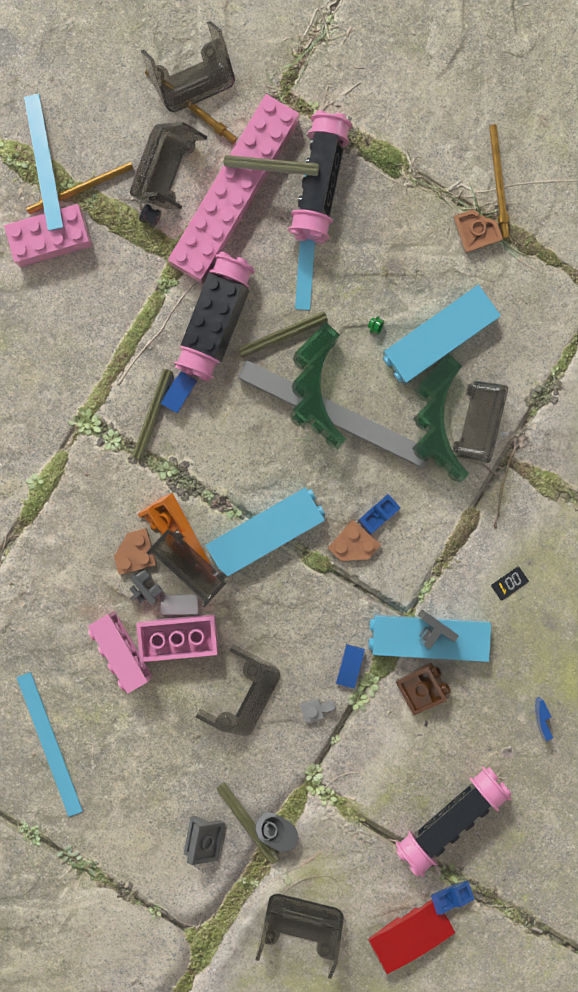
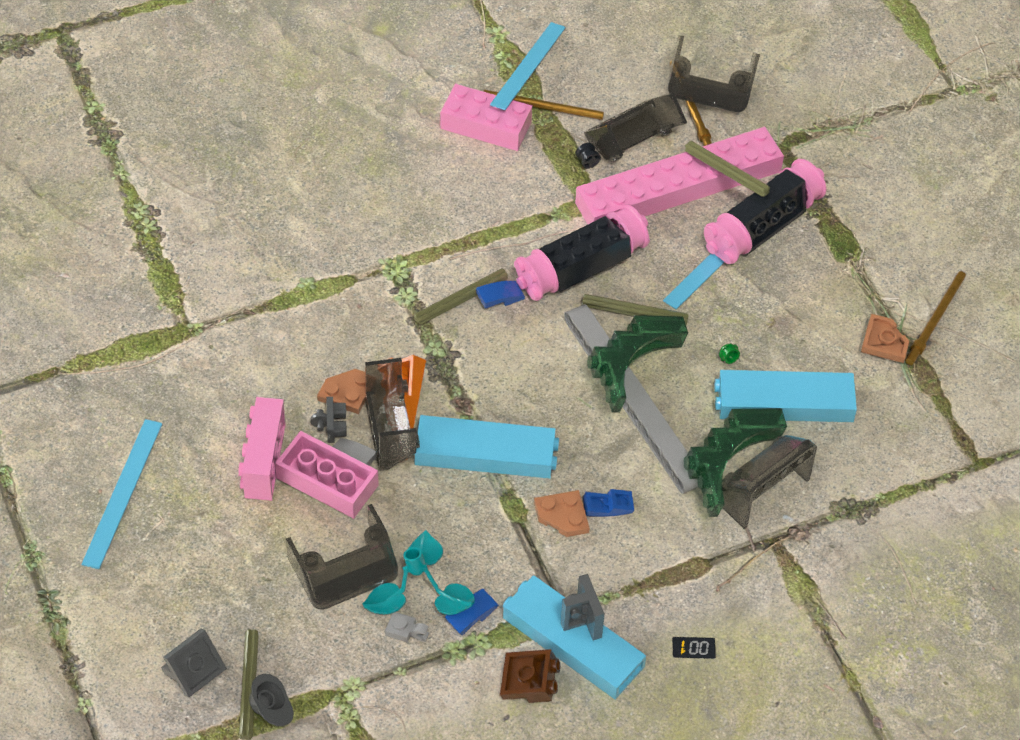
camera: 35 degrees right, 35 degrees down
(285, 696) = (422, 552): none -> teal plant

